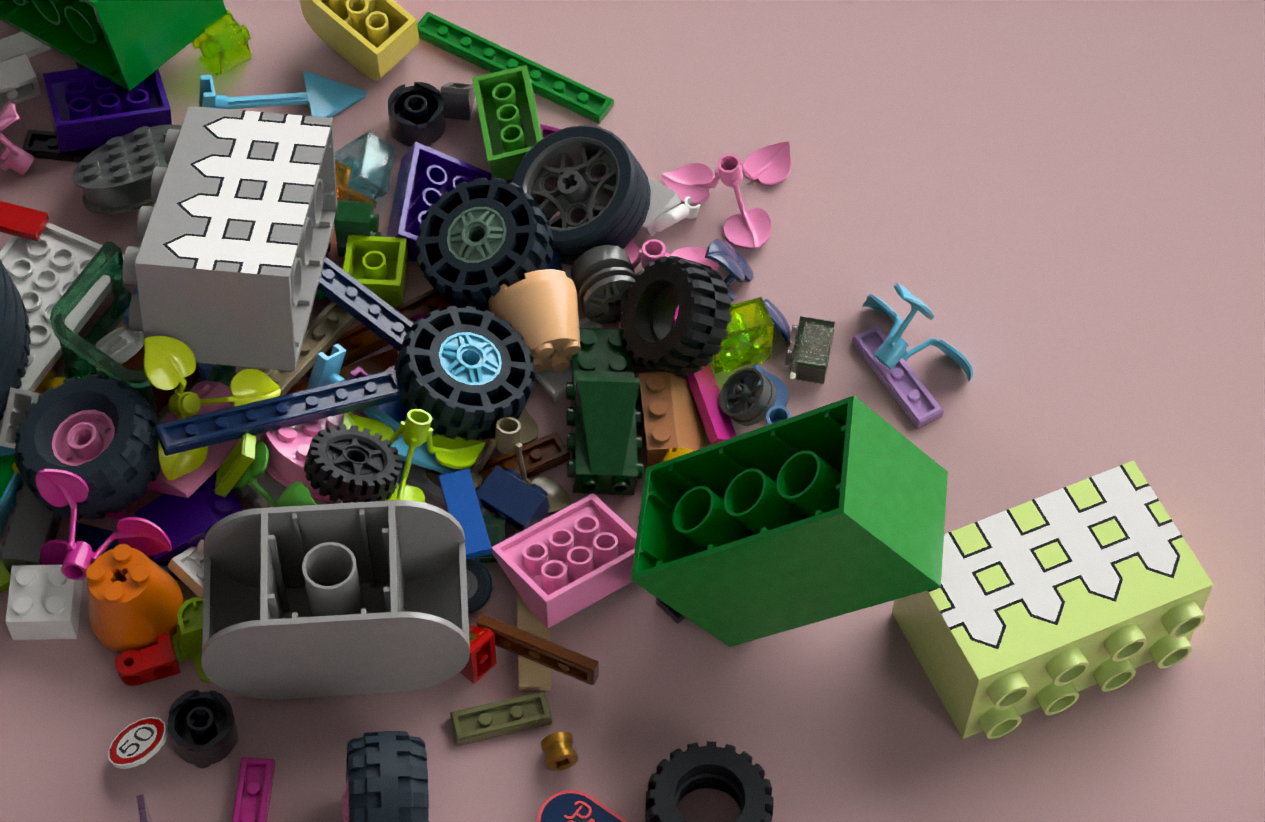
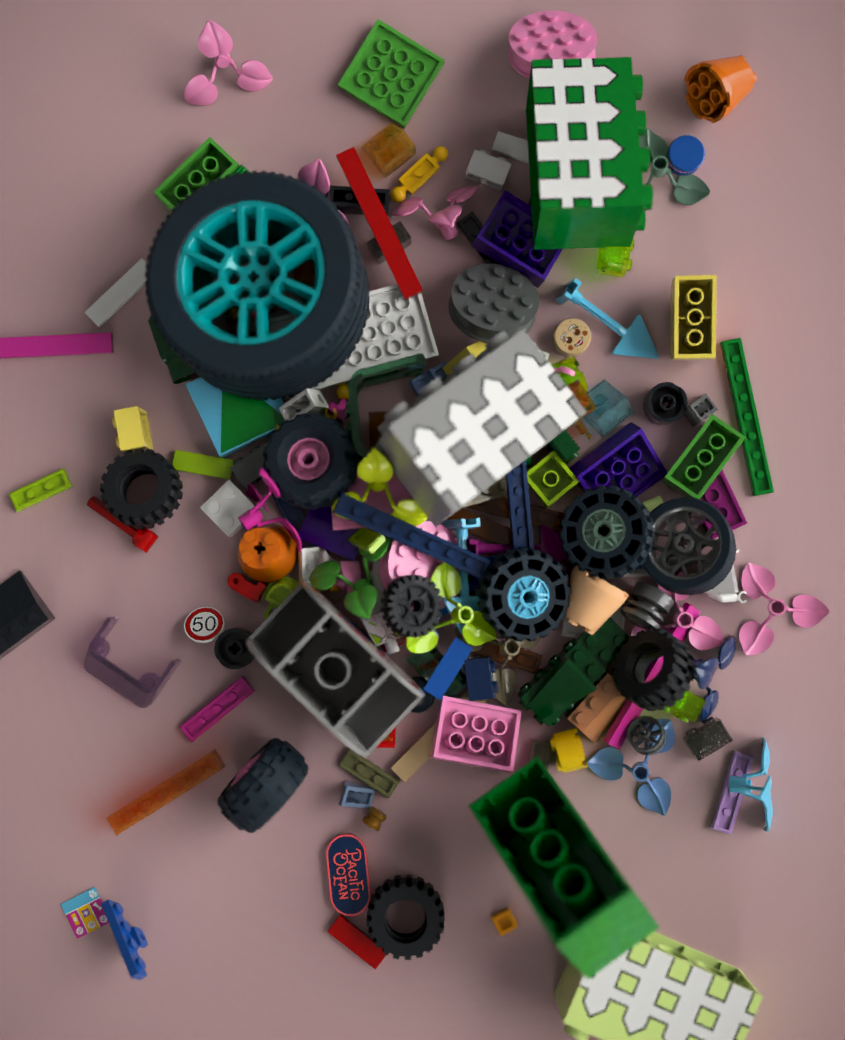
camera: 45 degrees right, 30 degrees up
(121, 344) = (387, 397): white tile -> none
(510, 749) = (356, 795): none -> sand blue slope
(541, 650) = (413, 765): reddish brown tile -> none
(823, 717) = (504, 921): none -> light orange tile

